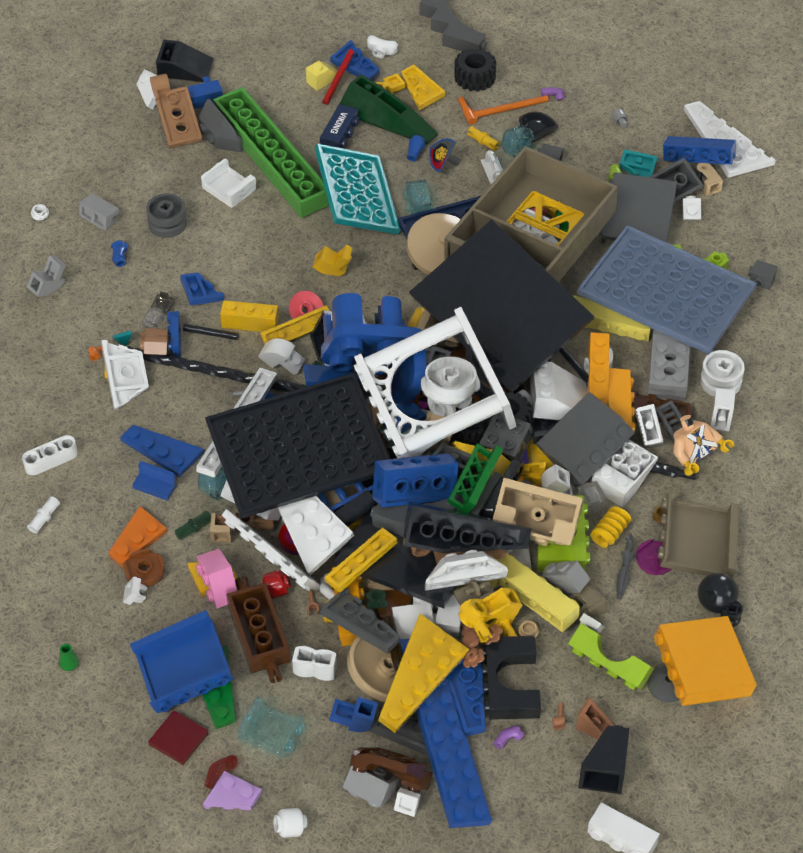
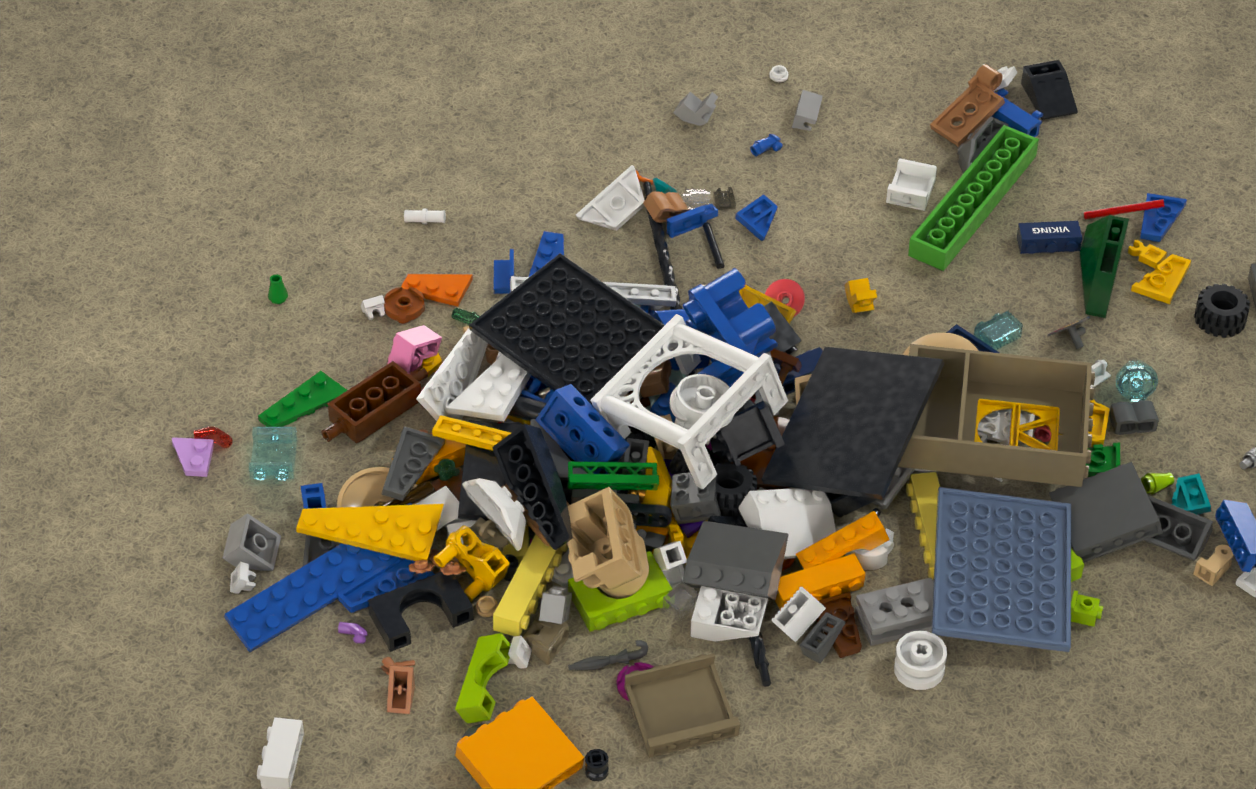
camera: 65 degrees right, 5 degrees down
(49, 455) = (492, 193): white beam -> none
(166, 215) = (832, 156): dark grey wheel -> none
(178, 737) = (235, 397): dark red tile -> none
(182, 661) = (311, 364): blue panel -> none
(248, 316) = (745, 260): yellow brick -> none
(290, 822) = (178, 502): white head -> none
(316, 663) = (355, 452): white brick -> none
(320, 74) = (1117, 193): light yellow slope -> none
(357, 189) = (965, 275): teal plate -> none
(381, 47) = (1197, 227): white piece -> none
(405, 767) = (264, 542): reddish brown slope -> none
(416, 145) = (1070, 305): blue cone -> none
(472, 115) = (1158, 333): orange bar -> none
(483, 138) = (1129, 352): yellow pin -> none
(539, 123) = (1179, 390): black hat -> none
(552, 91) = (1247, 387): medium lavender arm -> none
(606, 762) = (354, 710): black slope -> none
(610, 526) = (652, 628): yellow piece -> none
(691, 208) = (1156, 562): white bracket -> none
(696, 441) = (803, 661): torso -> none
(718, 592) = (612, 741): black brick -> none
(722, 409) = (864, 671): white brick -> none
(763, 274) = (1098, 657): dark grey brick -> none

